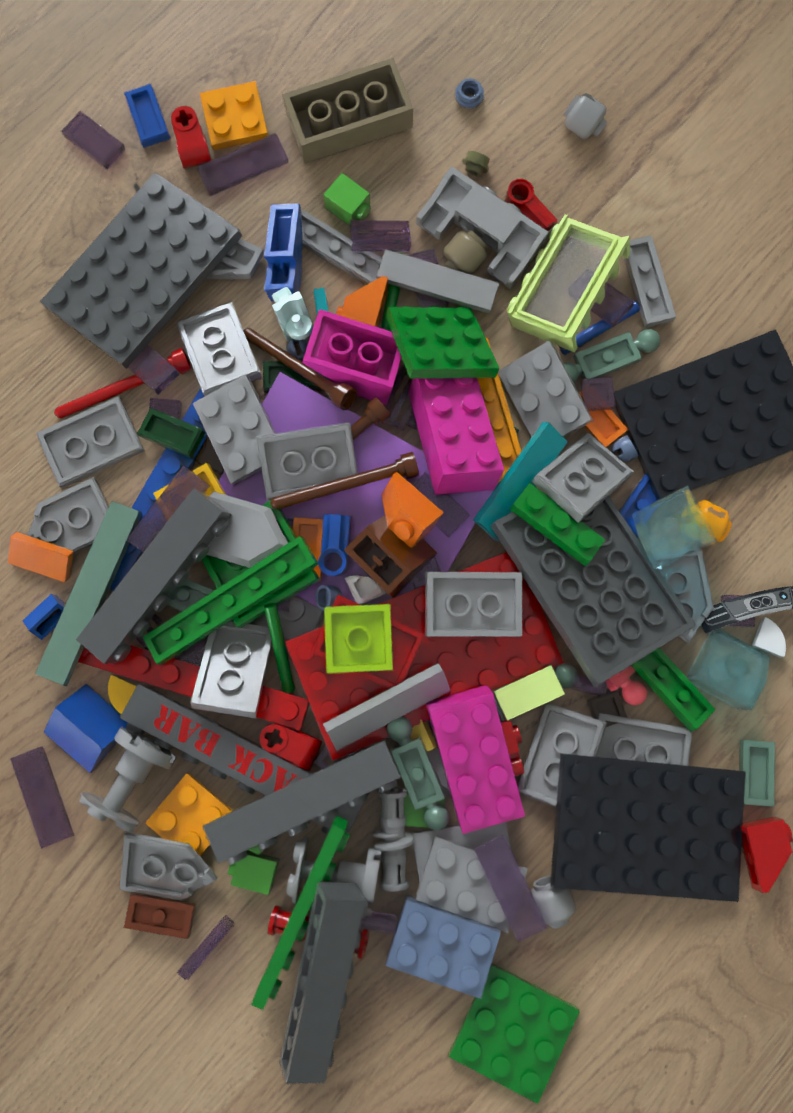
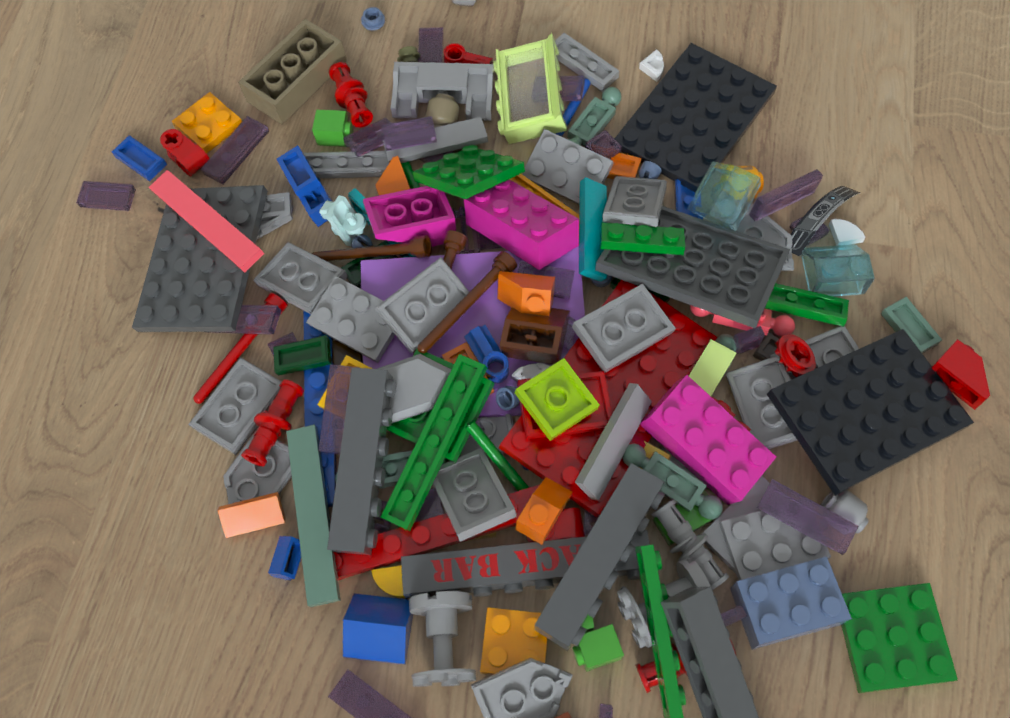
camera: 30 degrees left, 15 degrees down
(108, 482) = (272, 422): none -> red piece
(162, 235) = (206, 221): none -> coral tile
(283, 727) = (543, 510): none -> orange slope
(388, 173) = (350, 95): none -> red piece
(414, 259) = (409, 133): none -> clear purple tile
(506, 165) = (431, 45): none -> clear purple tile
(628, 728) = (792, 347): none -> red gear
(718, 330) = (653, 65): none -> white tile
(738, 565) = (785, 195): none -> clear purple tile

